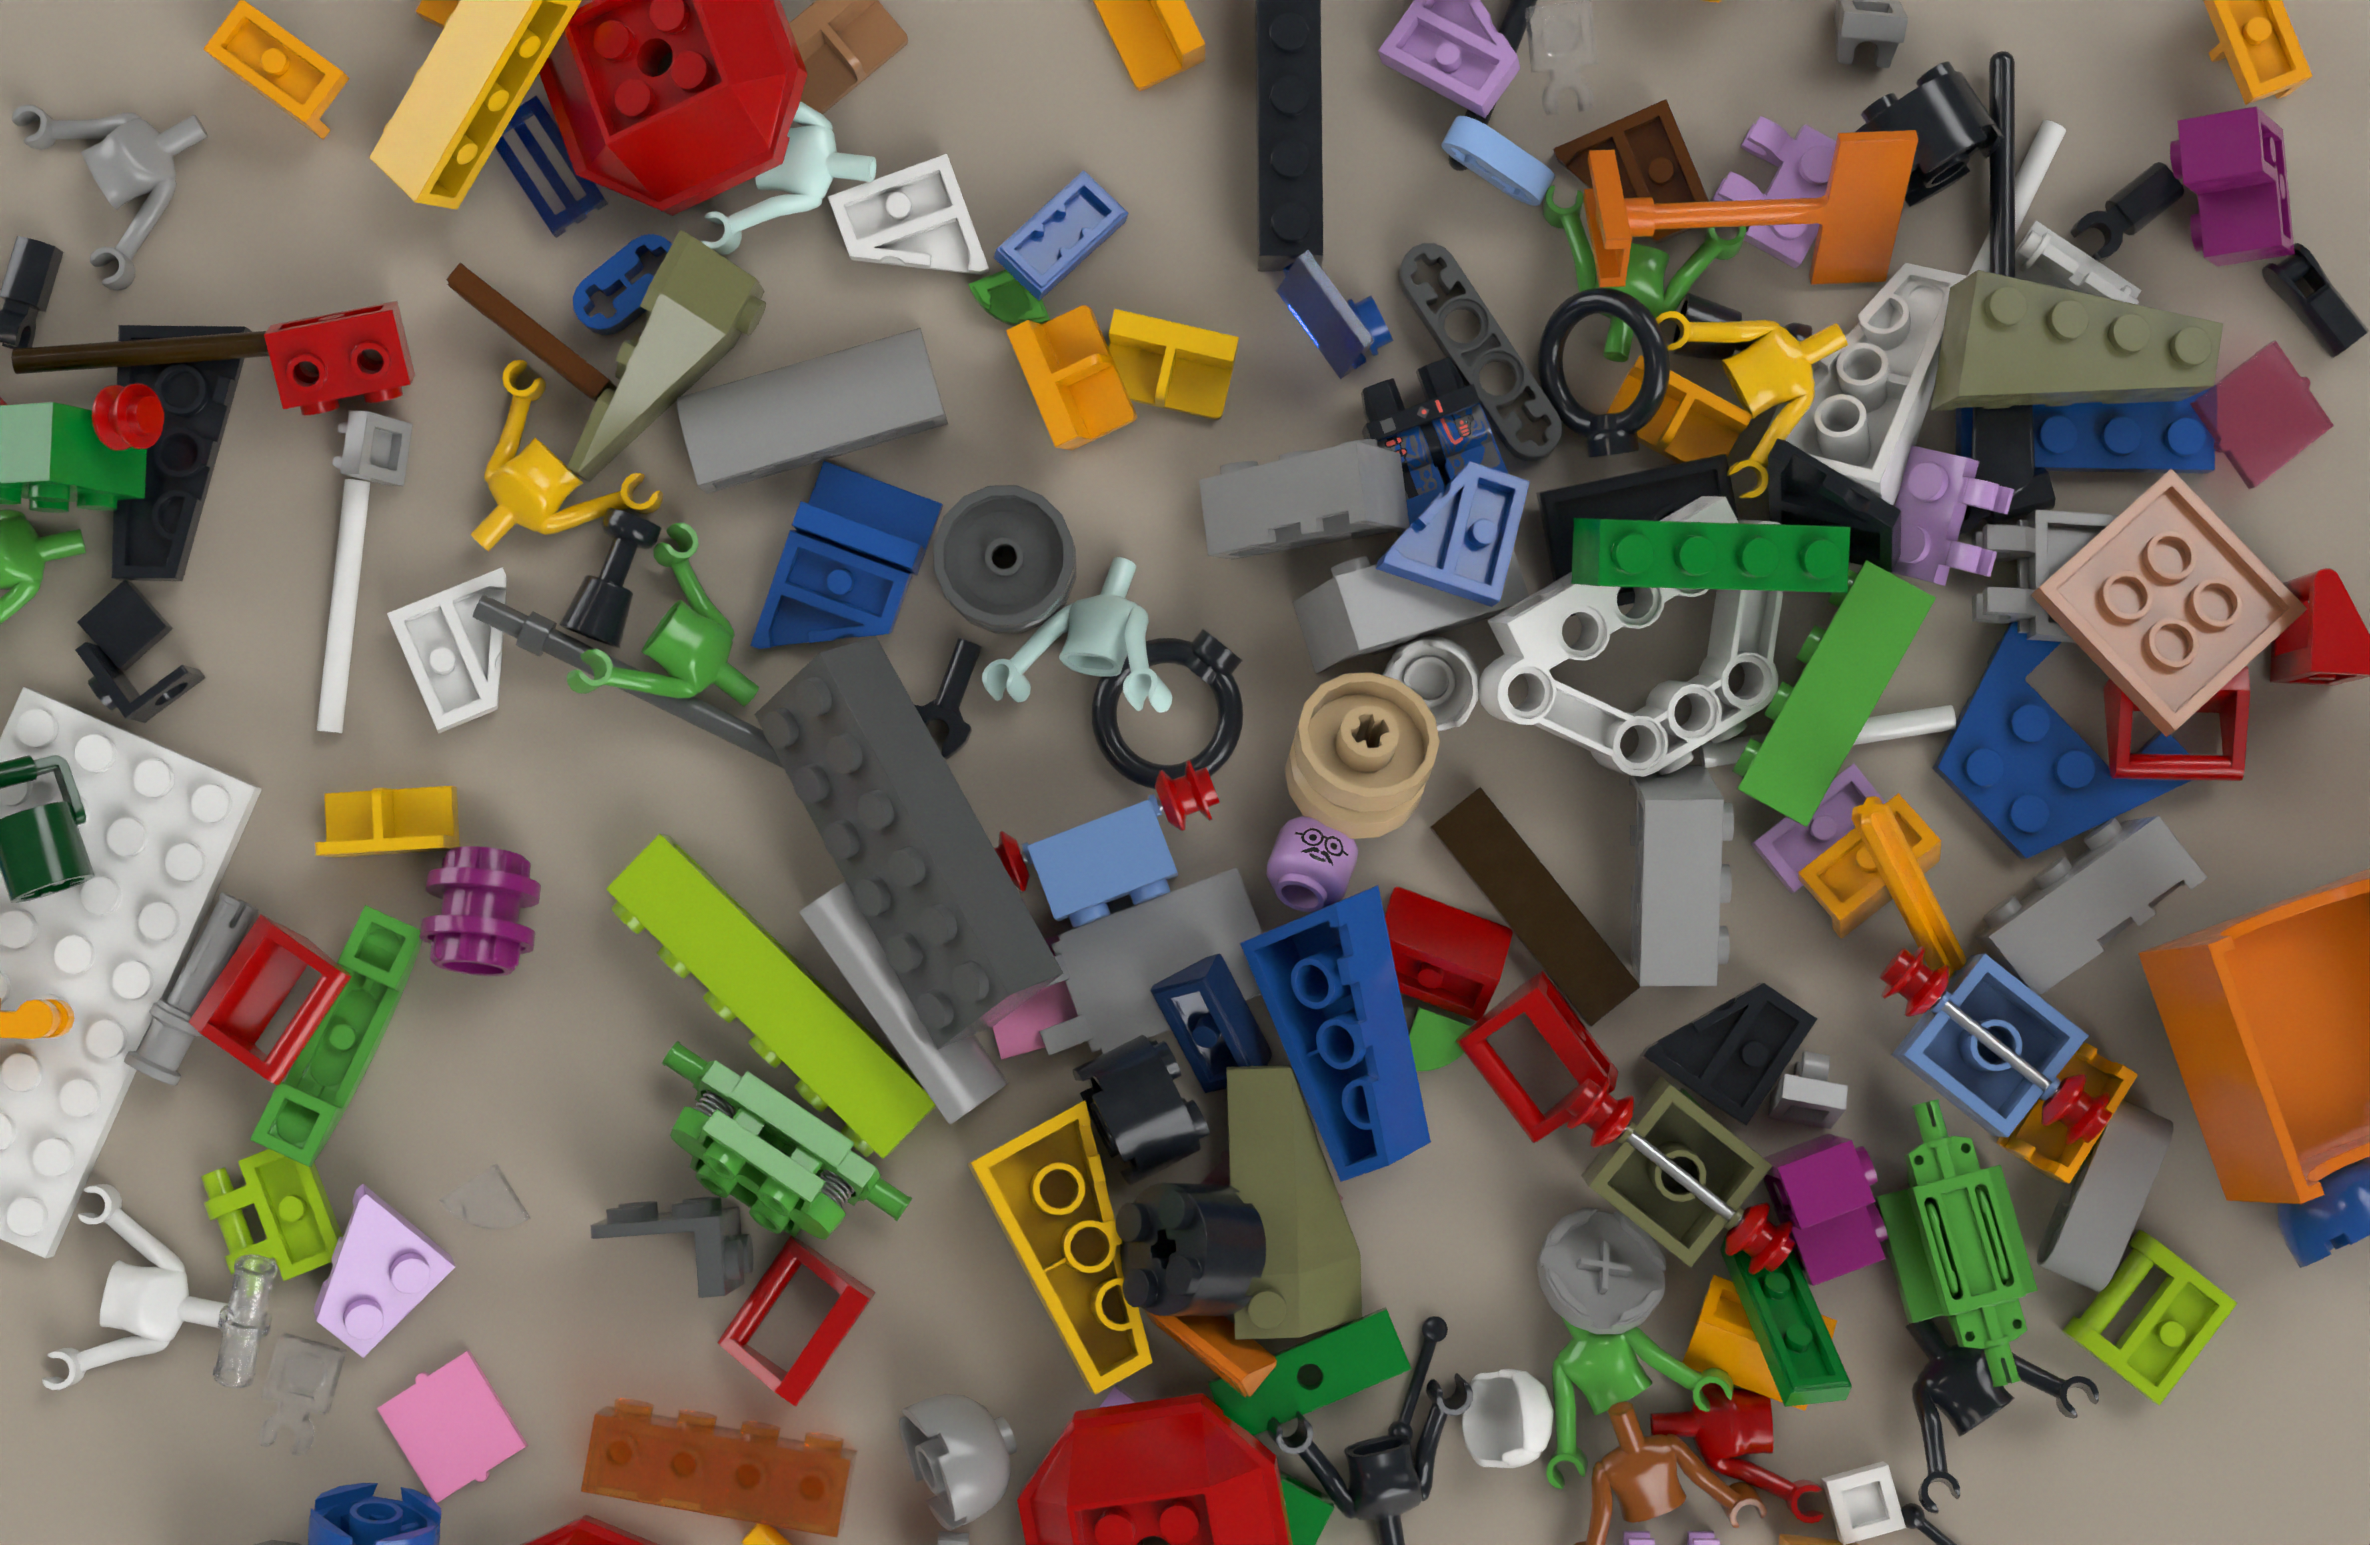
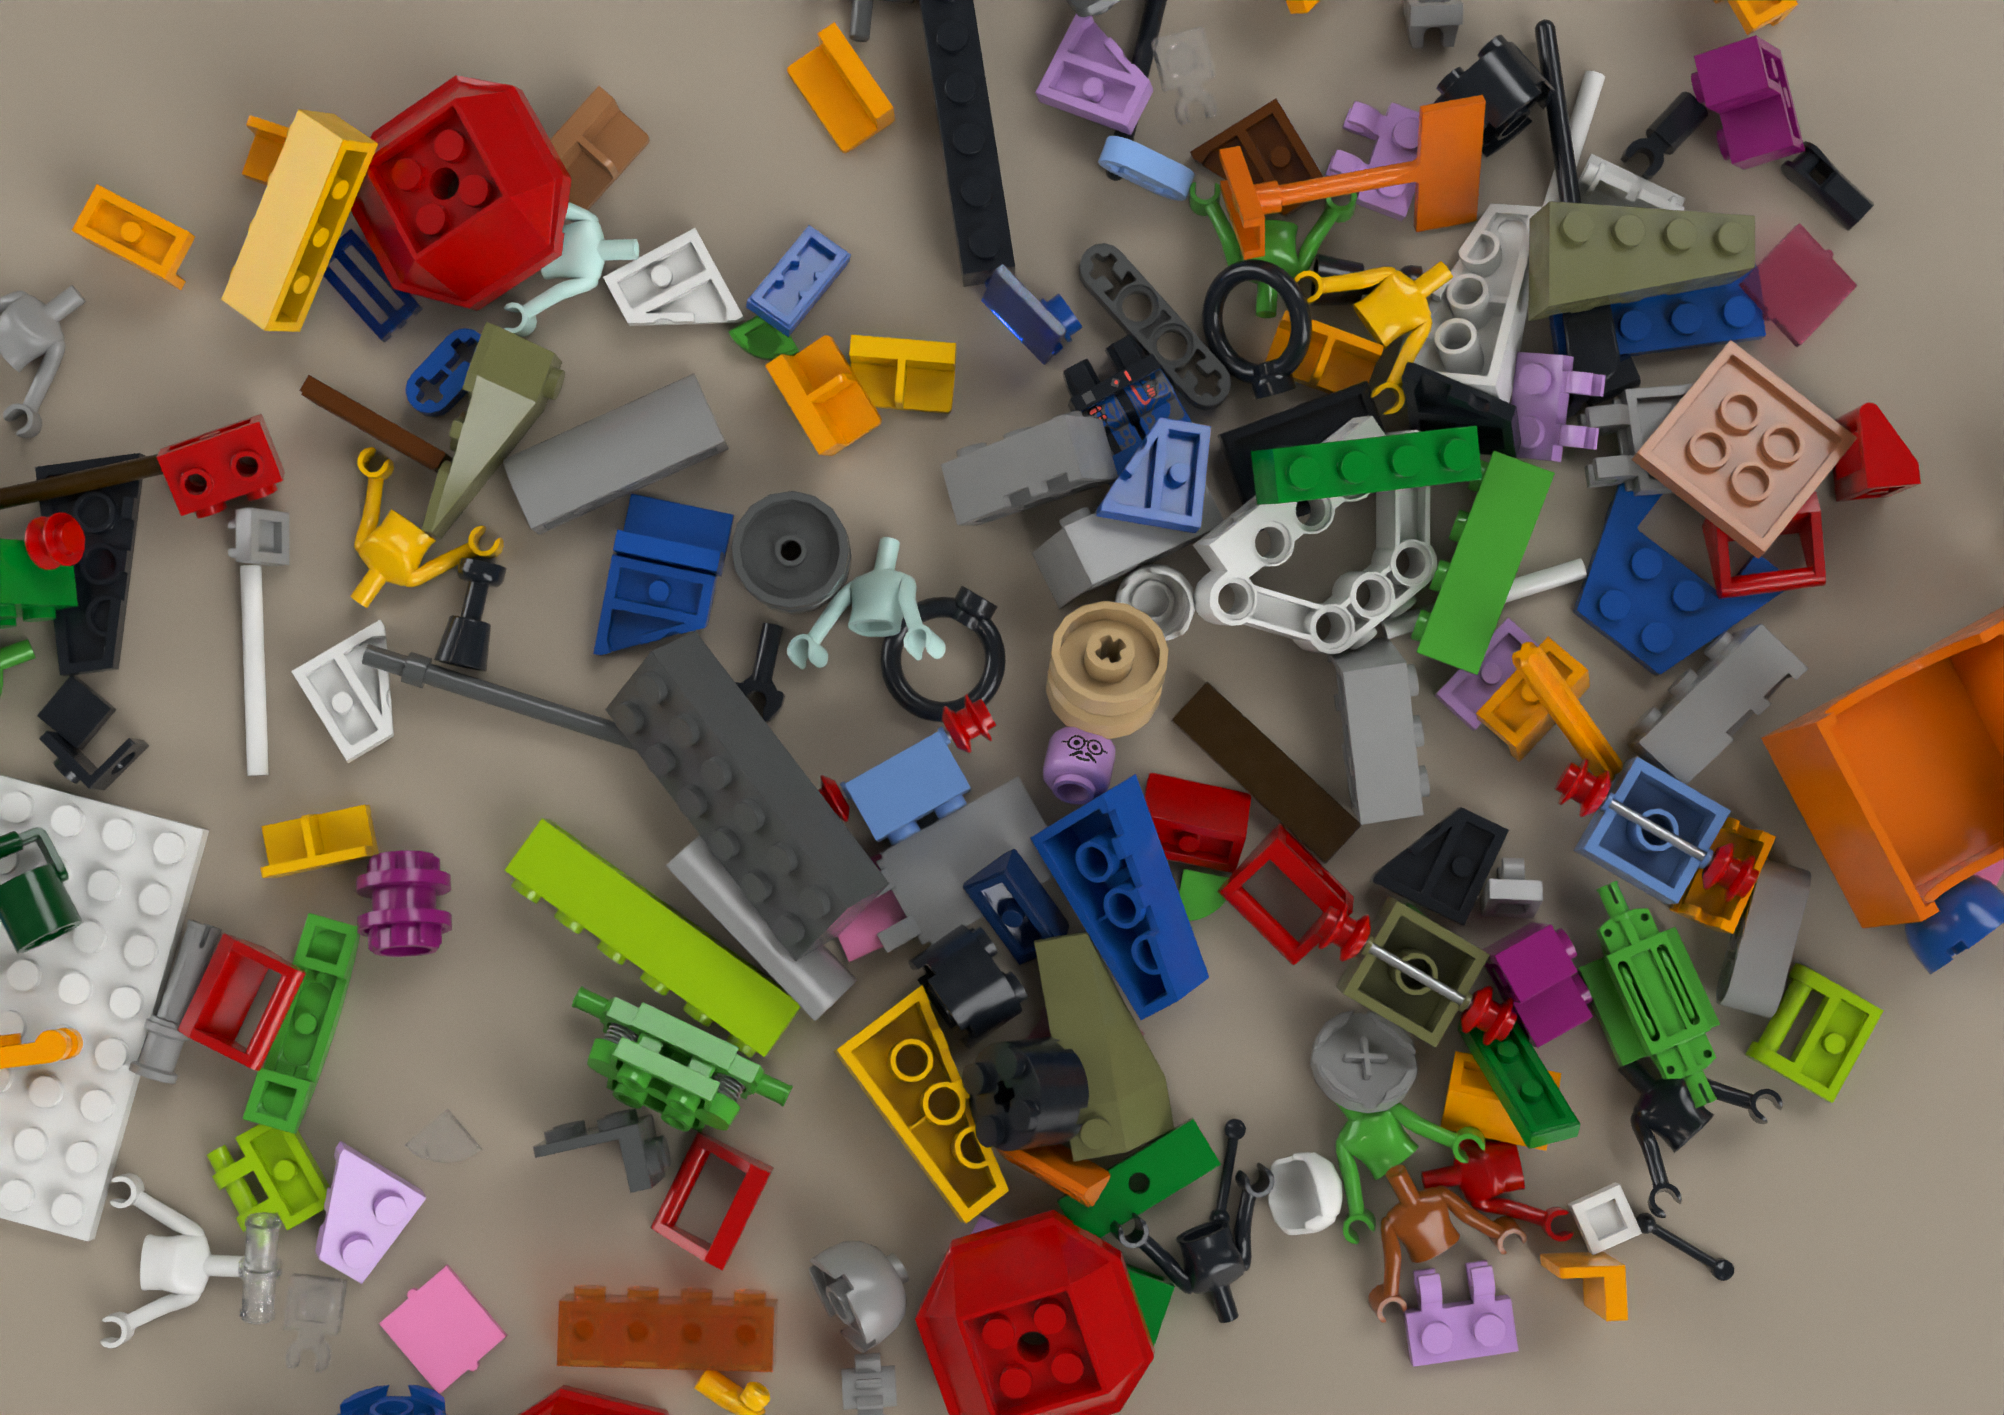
camera: 15 degrees left, 0 degrees up
(686, 642) = (541, 658): bright green piece -> none

